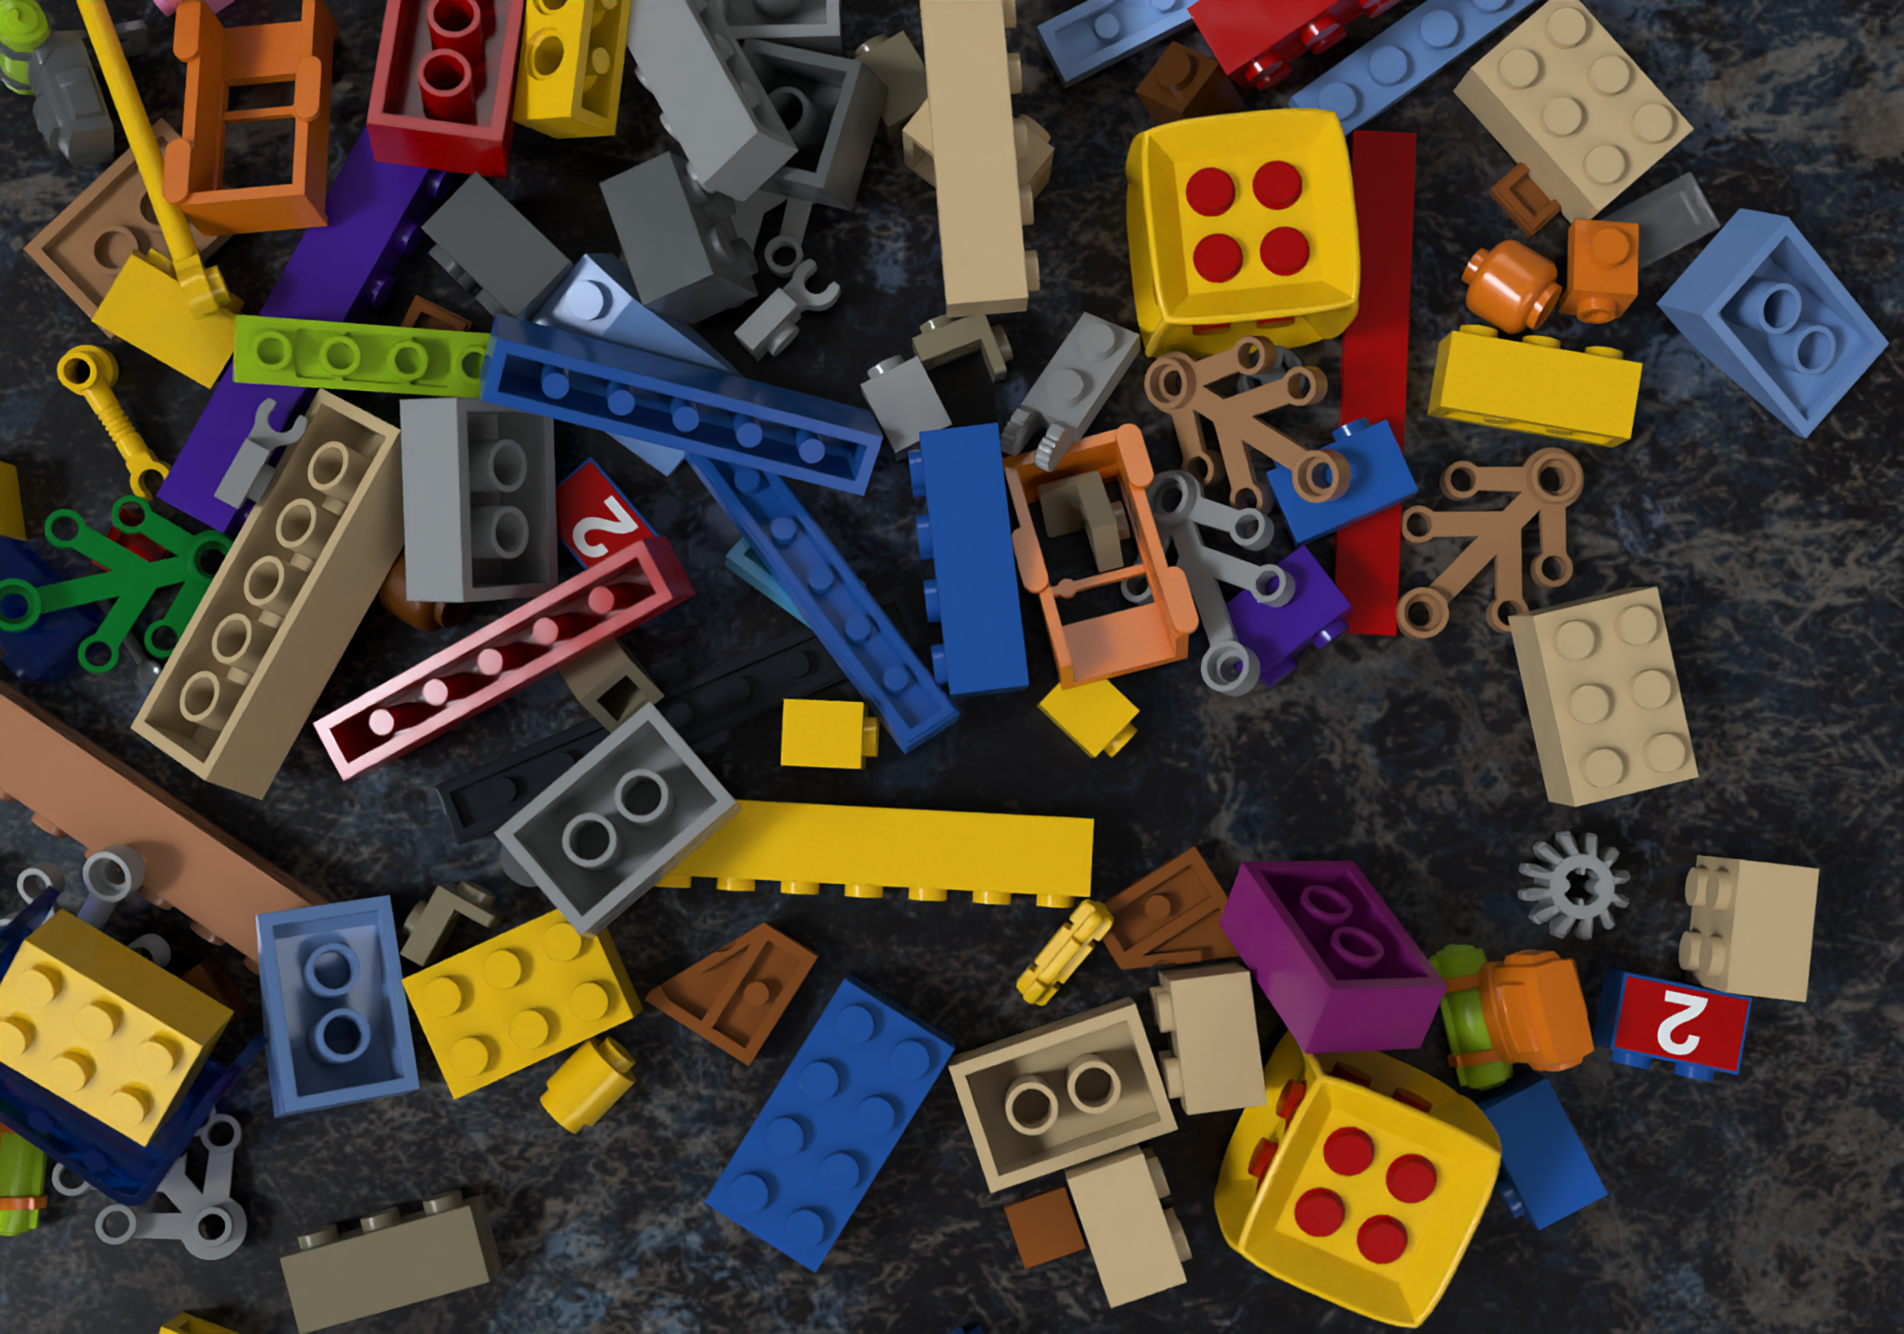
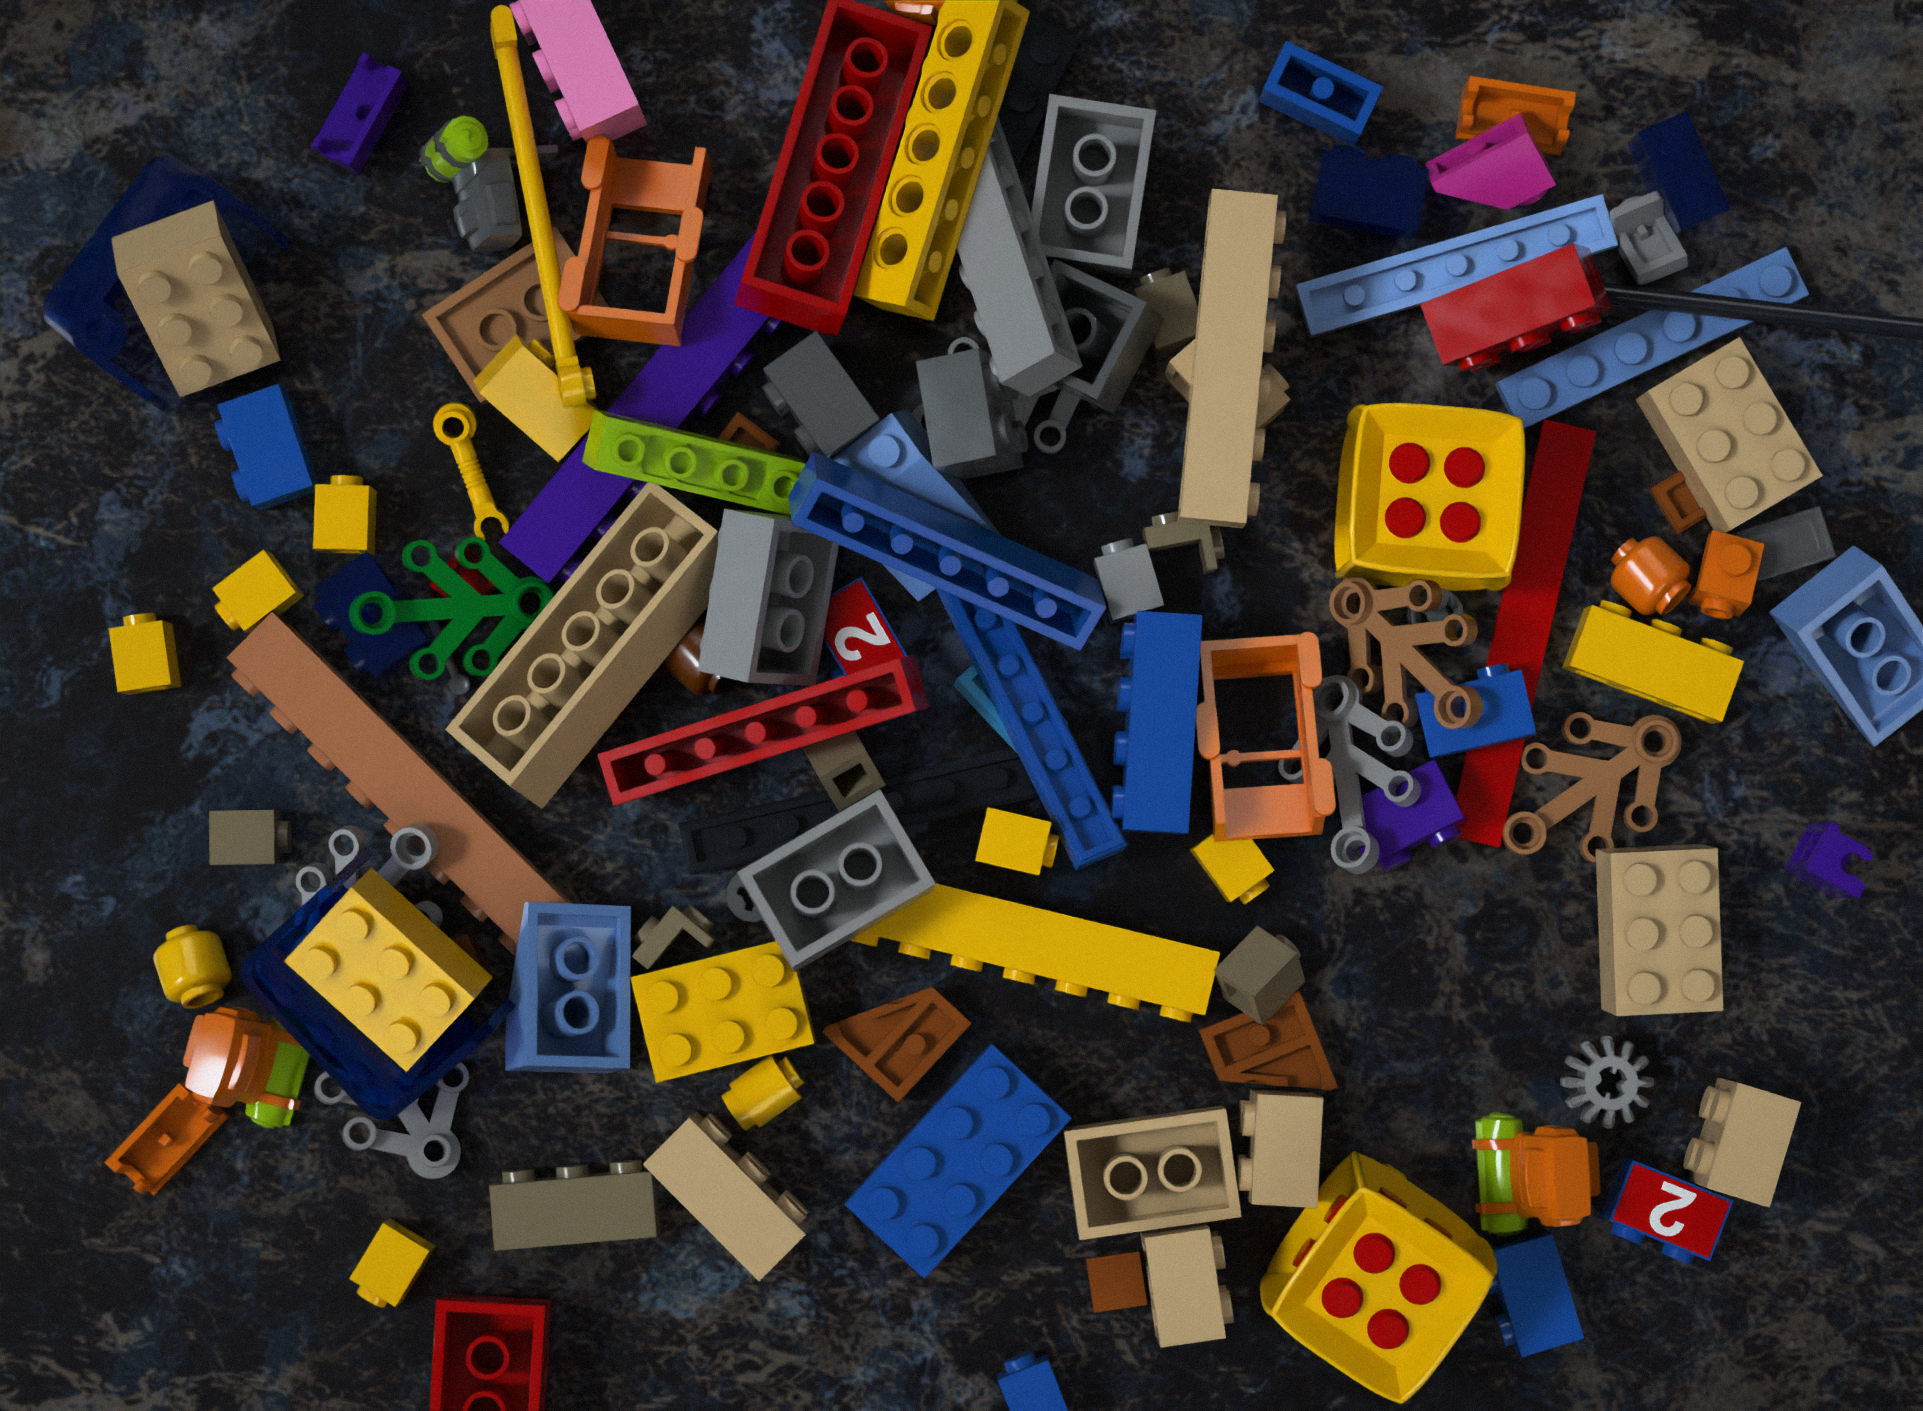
camera: 15 degrees right, 0 degrees up
(249, 472) = (584, 538): light grey plate -> none
(564, 1215) = (729, 1194): none -> tan brick
(773, 323) = (1031, 492): light grey plate -> none
(1065, 952) = (1175, 1058): yellow axle -> none
(1072, 389) = (1269, 593): light grey hinge -> none
(1084, 504) = (1260, 690): dark tan bracket -> none
(1146, 836) = (1260, 974): none -> dark tan brick
(1187, 87) = (1411, 367): reddish brown brick -> none
(1331, 956) = (1391, 1098): magenta brick -> none
(1778, 579) = (1823, 856): none -> dark purple hinge

